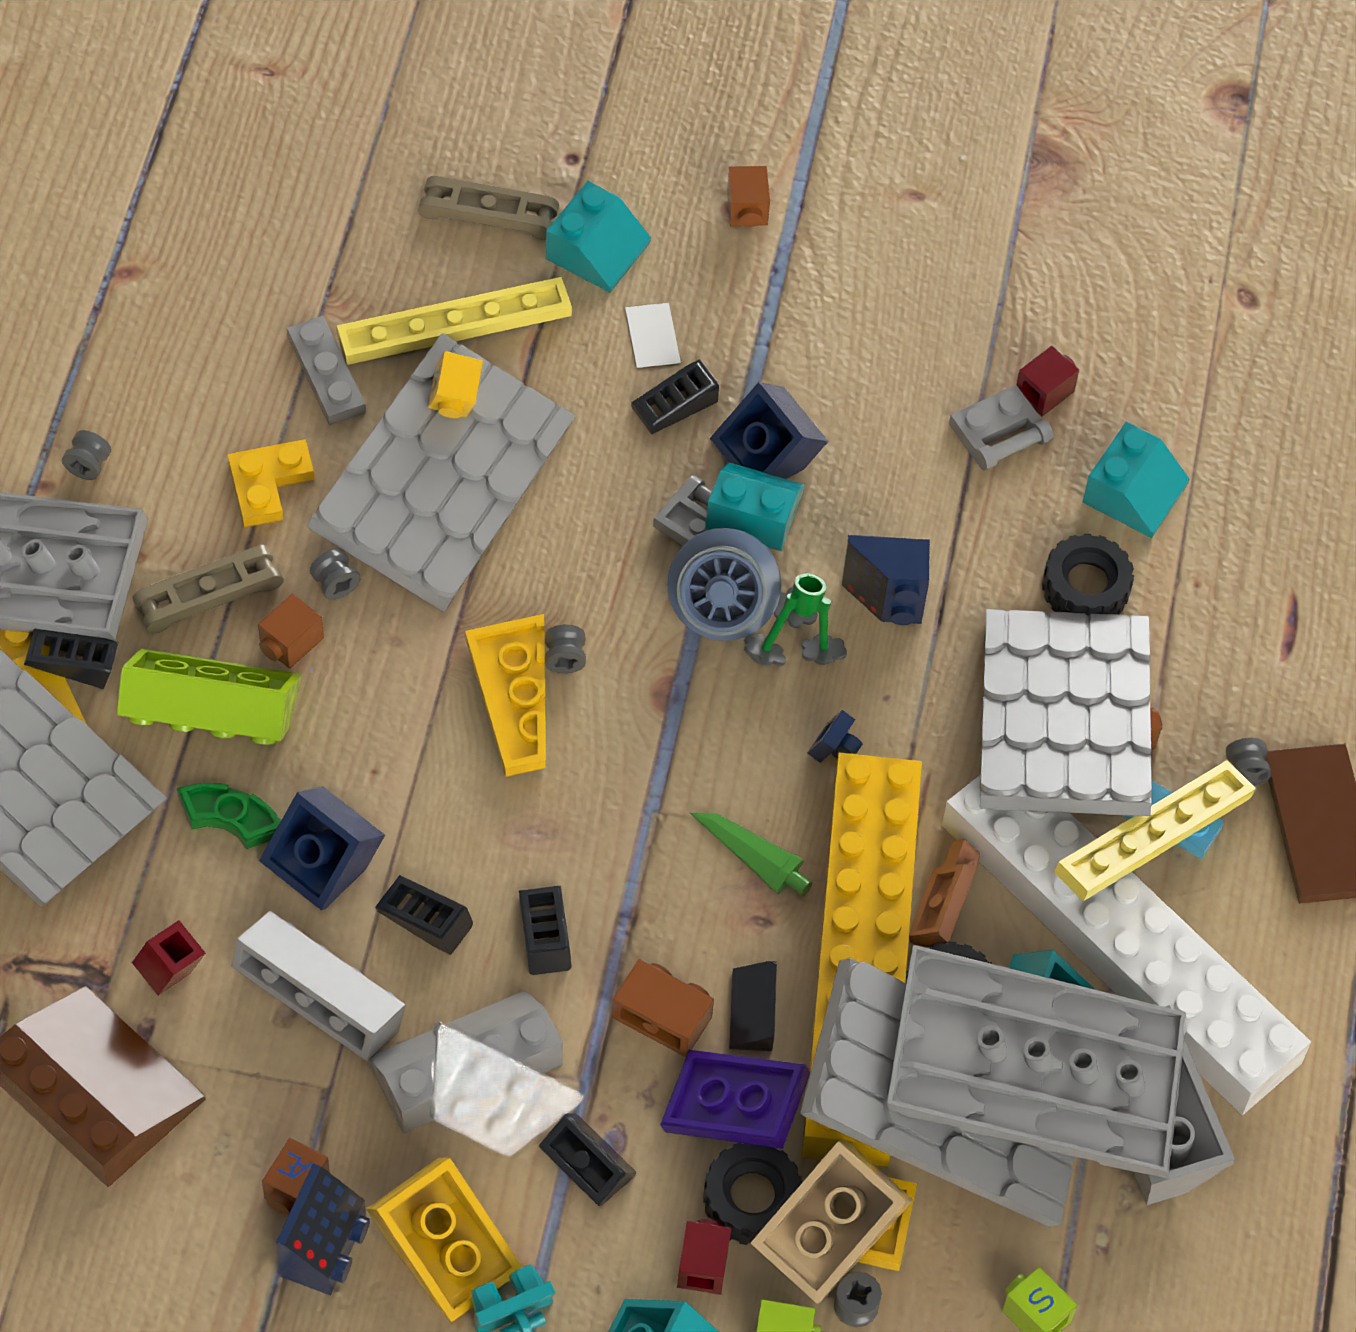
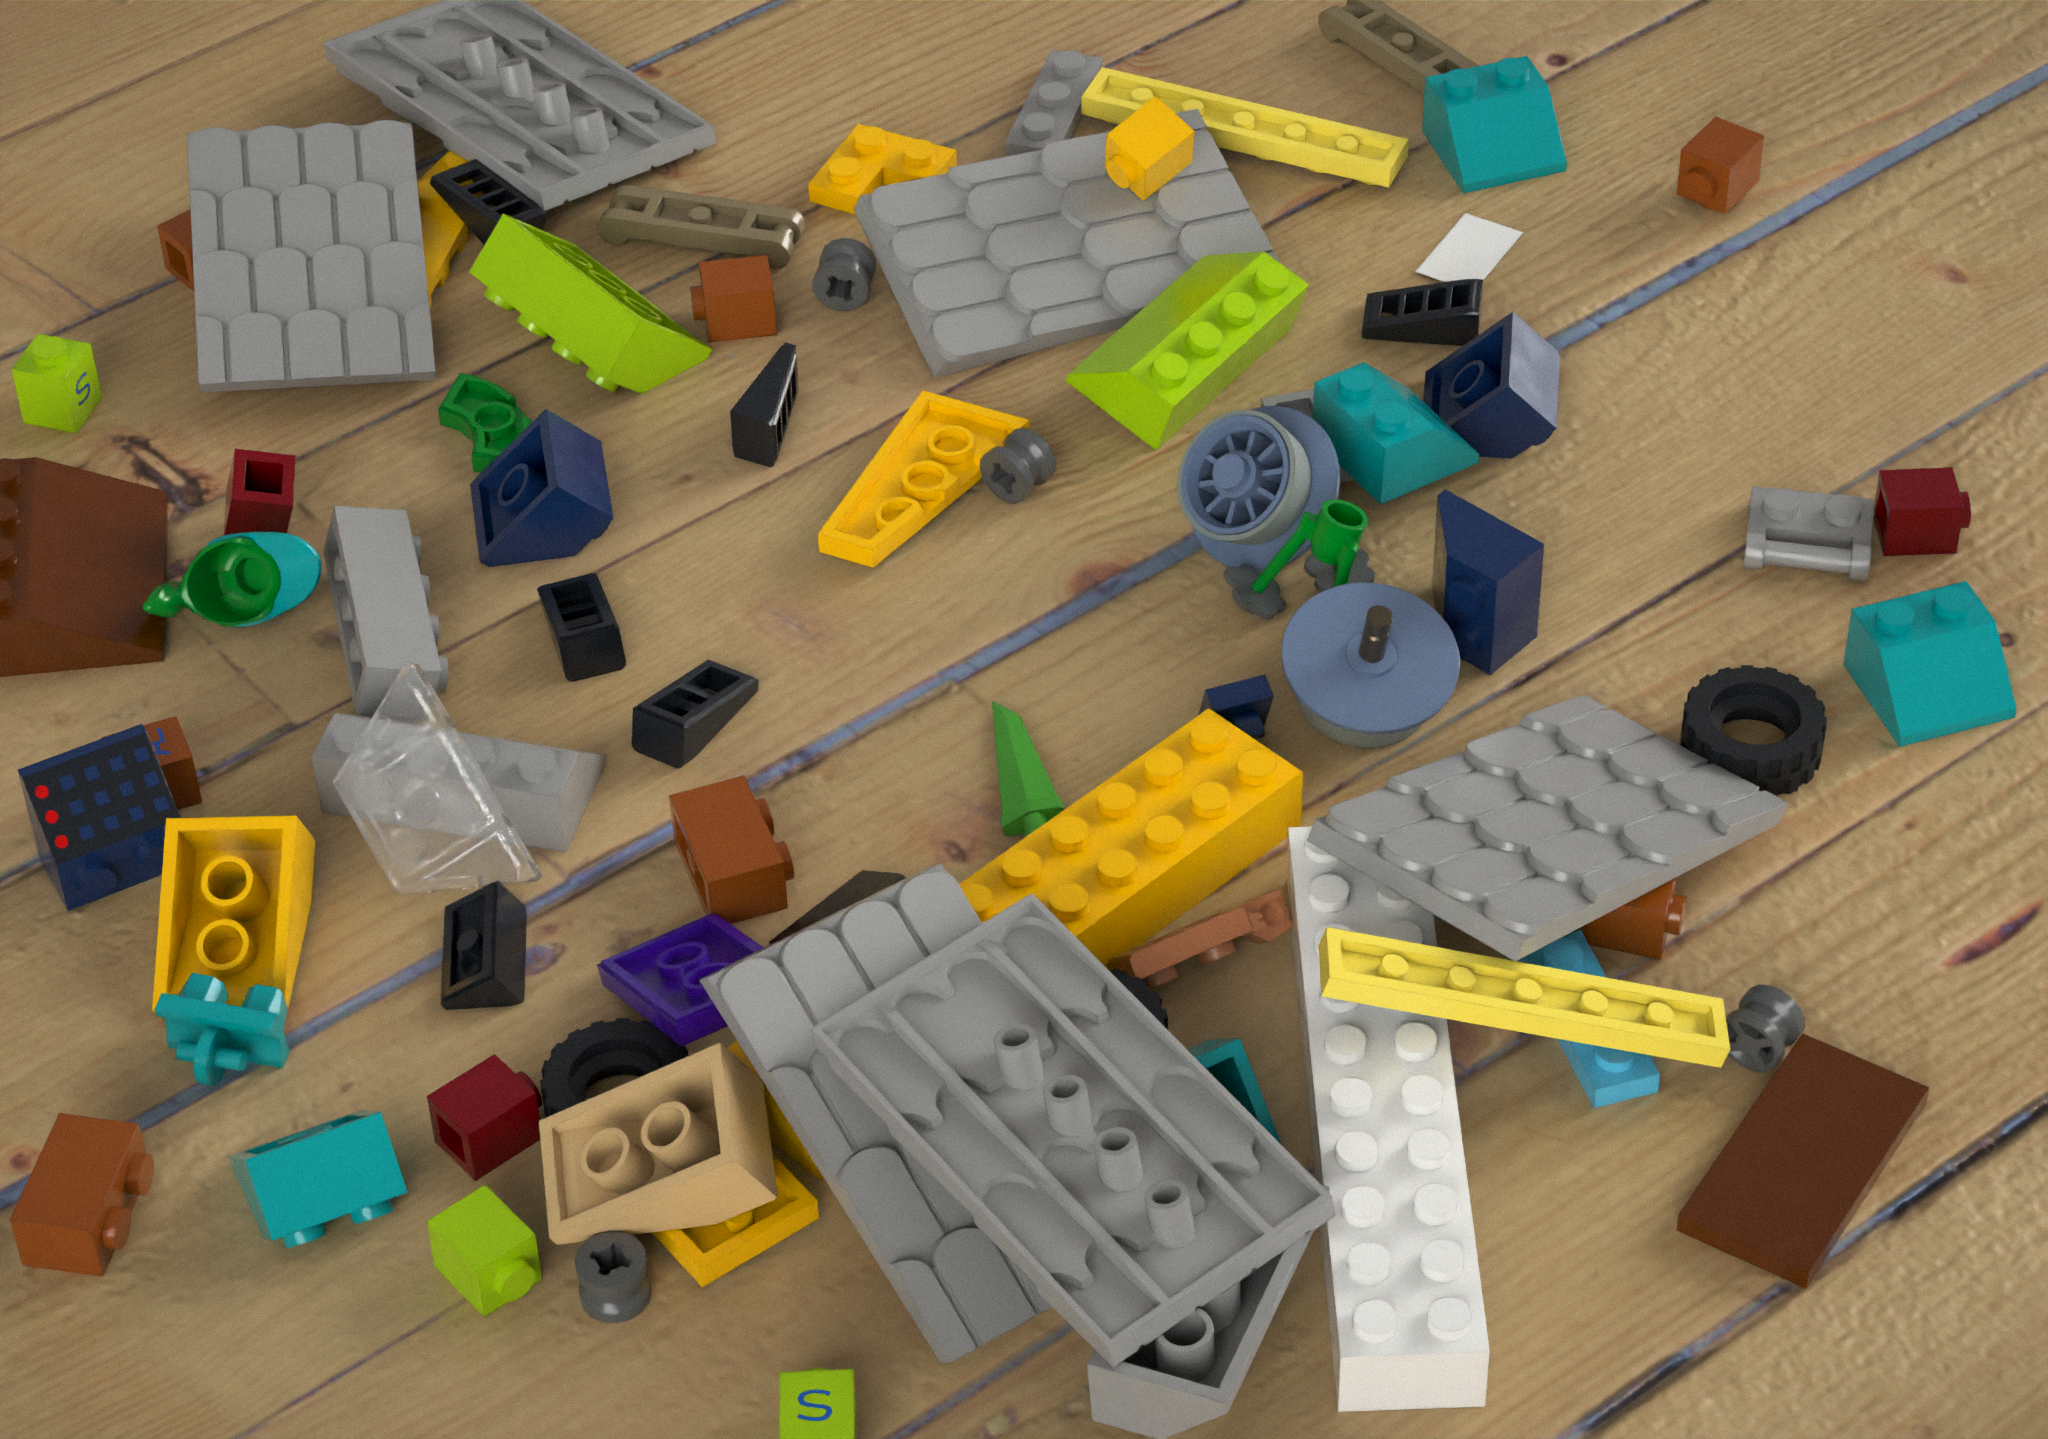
camera: 45 degrees right, 15 degrees down
(86, 455) = (711, 54): dark grey wheel -> none
(218, 1020) = (242, 580): none -> green hair
(393, 708) = (765, 409): none -> black slope
(581, 502) = (1190, 342): none -> lime slope
(886, 665) = (1369, 663): none -> sand blue piece

